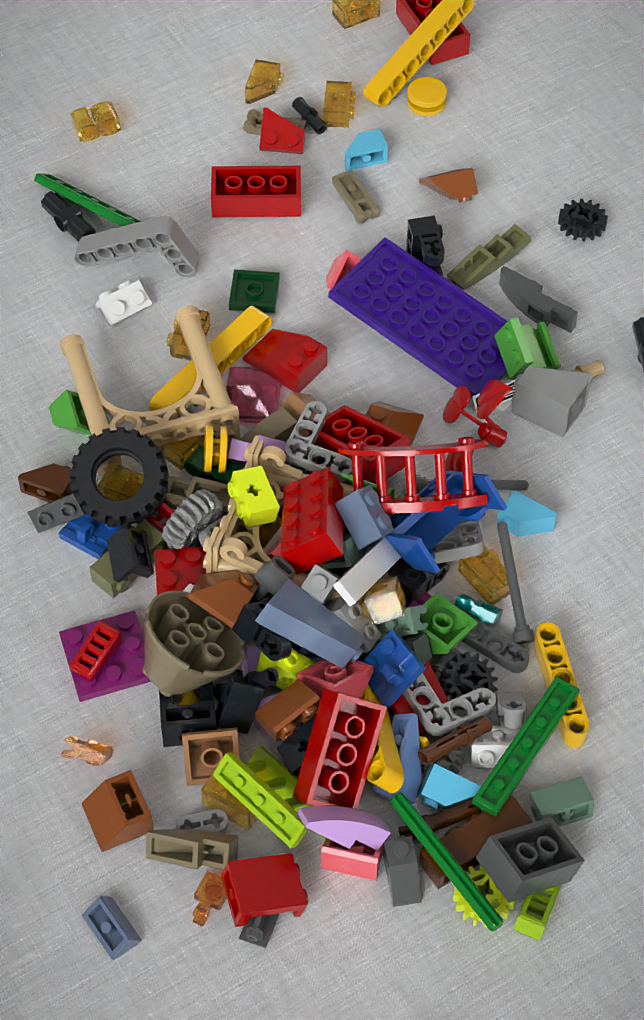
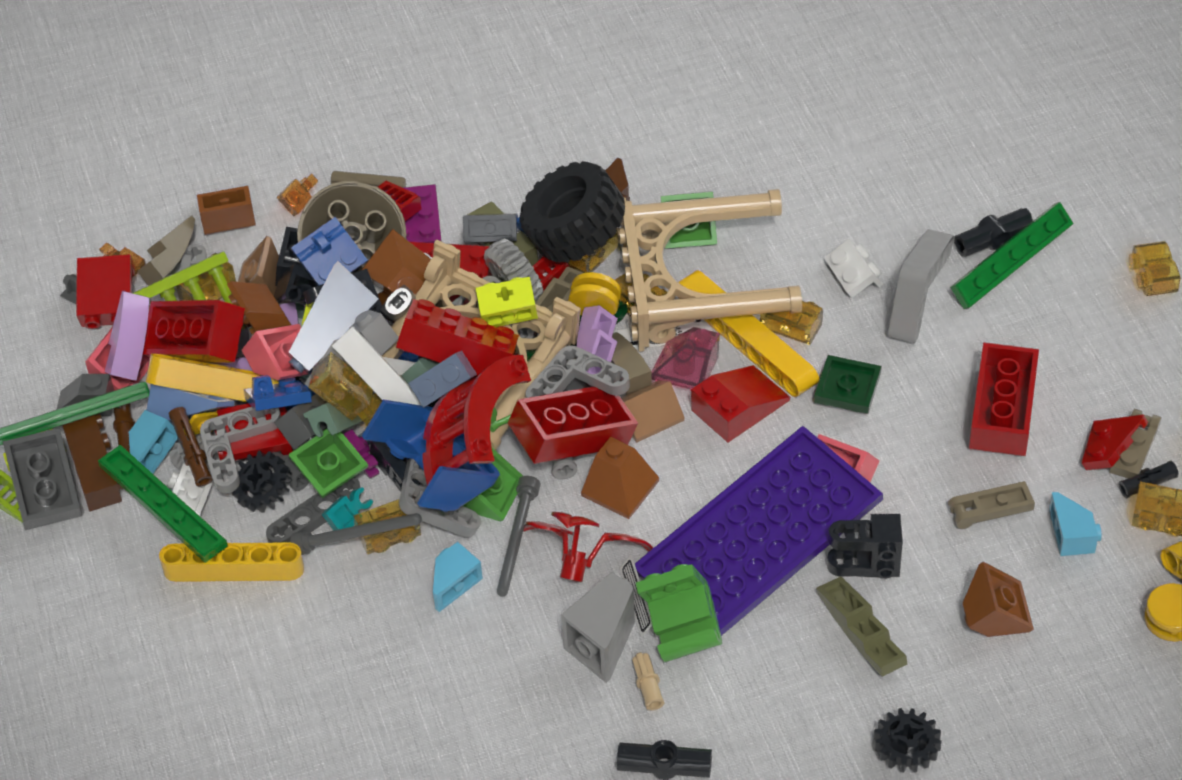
camera: 105 degrees right, 5 degrees down
(58, 695) = (370, 179): none -> dark tan axle
(111, 927) = (127, 200): sand blue slope -> none
(225, 647) = (326, 247): none -> hinge
(510, 711) = (216, 508): light grey piece -> none
(528, 298) = (779, 648): dark grey slope -> none
(563, 802) = (101, 533): sand green hinge -> none

